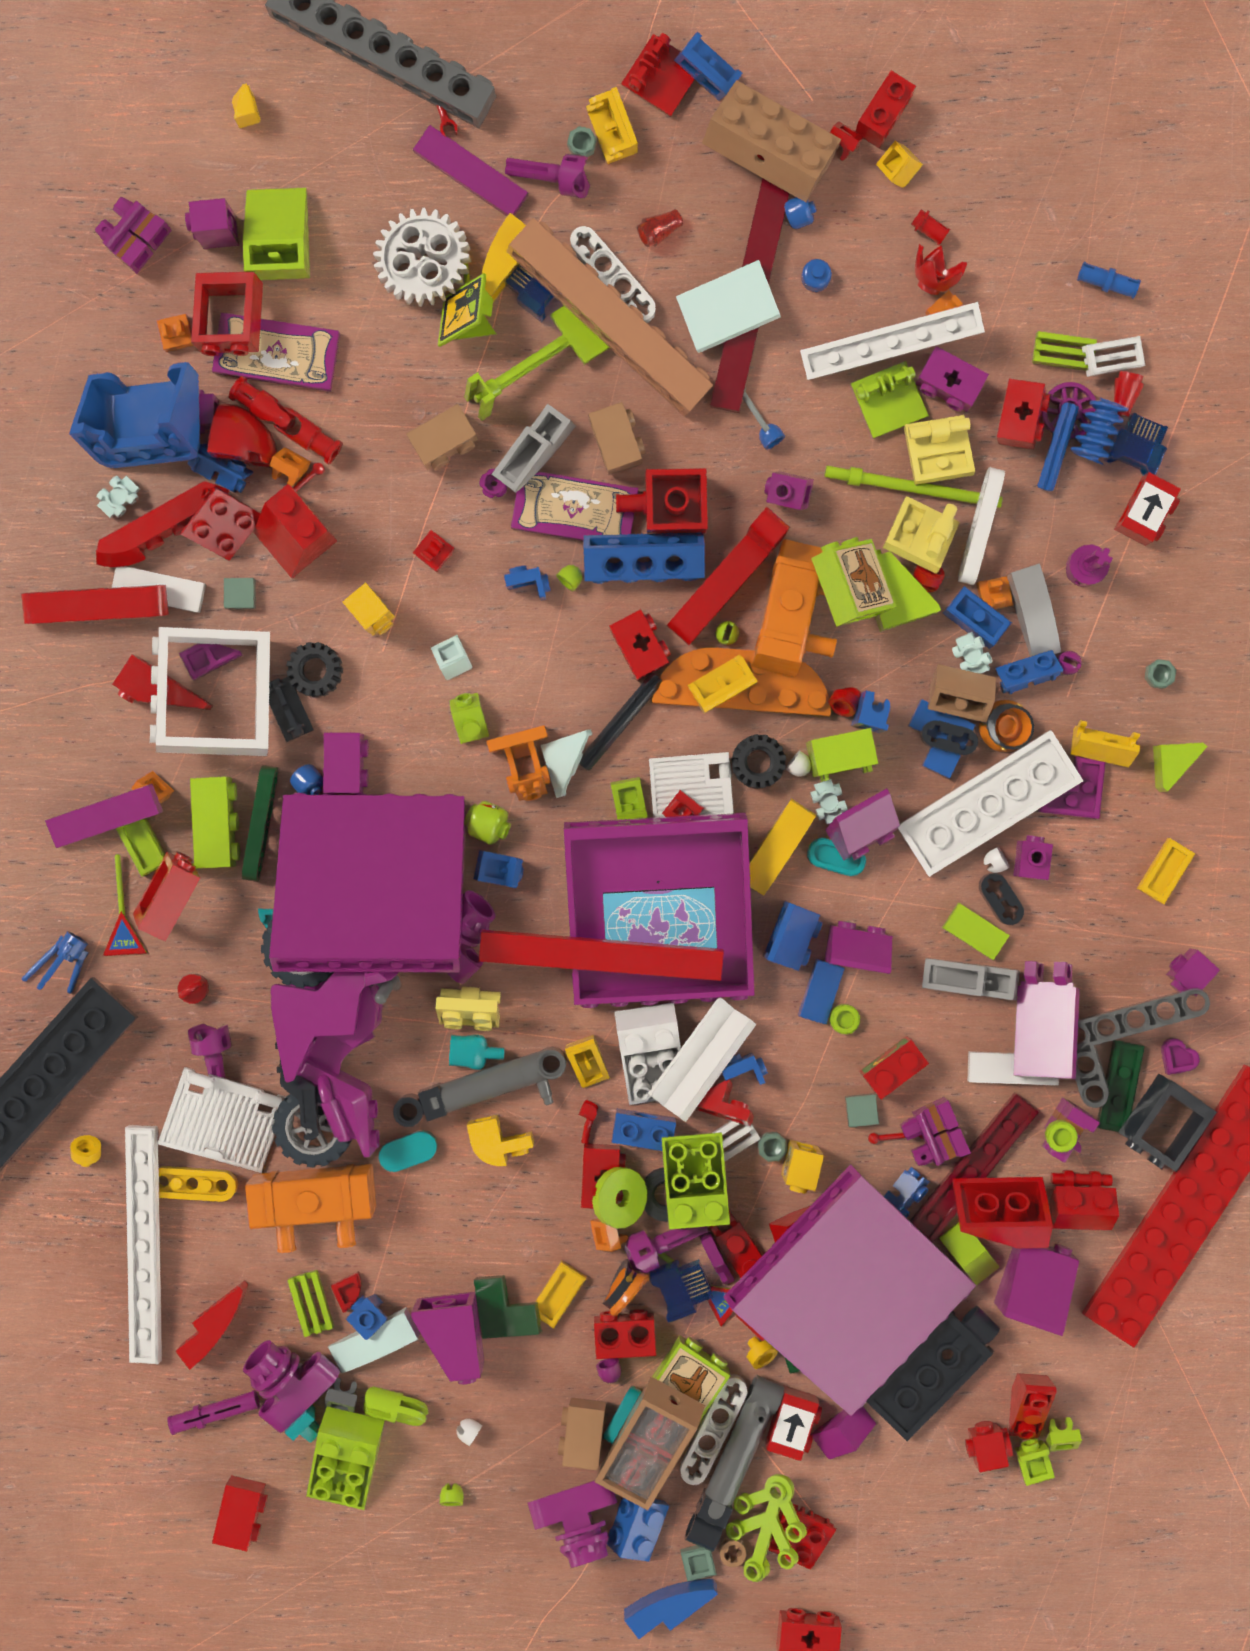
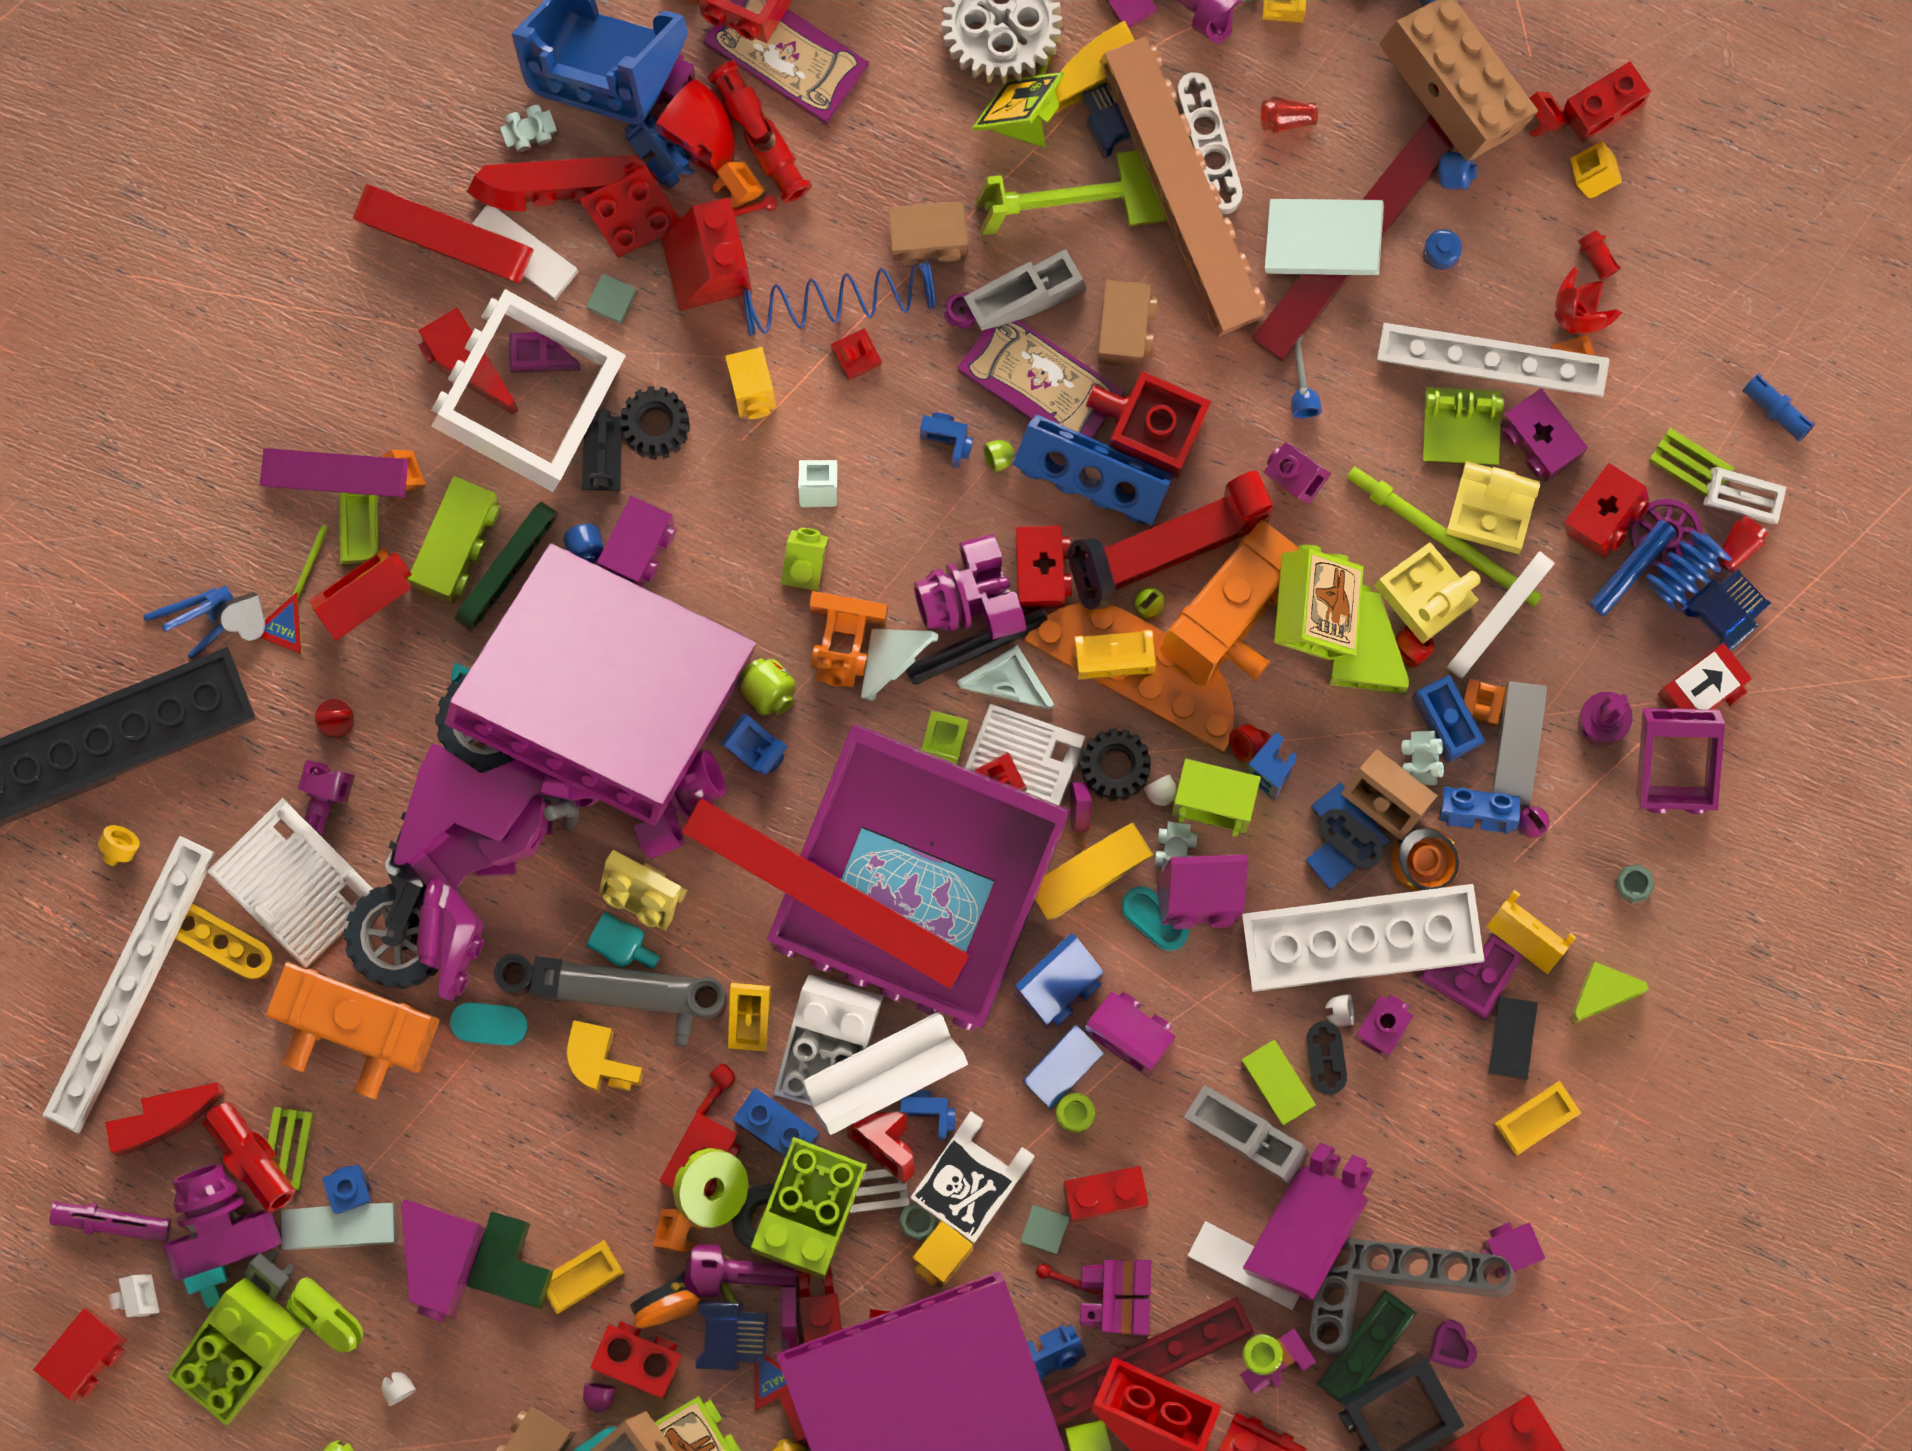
camera: 25 degrees right, 10 degrees down
(90, 949) = (242, 616): none -> tile
(258, 1455) = (136, 1296): none -> white tile
(287, 1325) = (249, 1157): none -> red piece
(347, 1290) = (337, 1154): red tile -> none
(349, 564) = (752, 318): none -> blue piece
(605, 681) = (976, 590): none -> magenta beam
(654, 734) = (1010, 679): none -> light aqua tile
(679, 634) = (1091, 574): none -> black beam
(747, 802) = (1080, 807): none -> magenta tile
(795, 1104) = (968, 1182): none -> flag
(1123, 823) = (1512, 1038): none -> black tile
(1145, 548) = (1681, 724): none -> magenta window

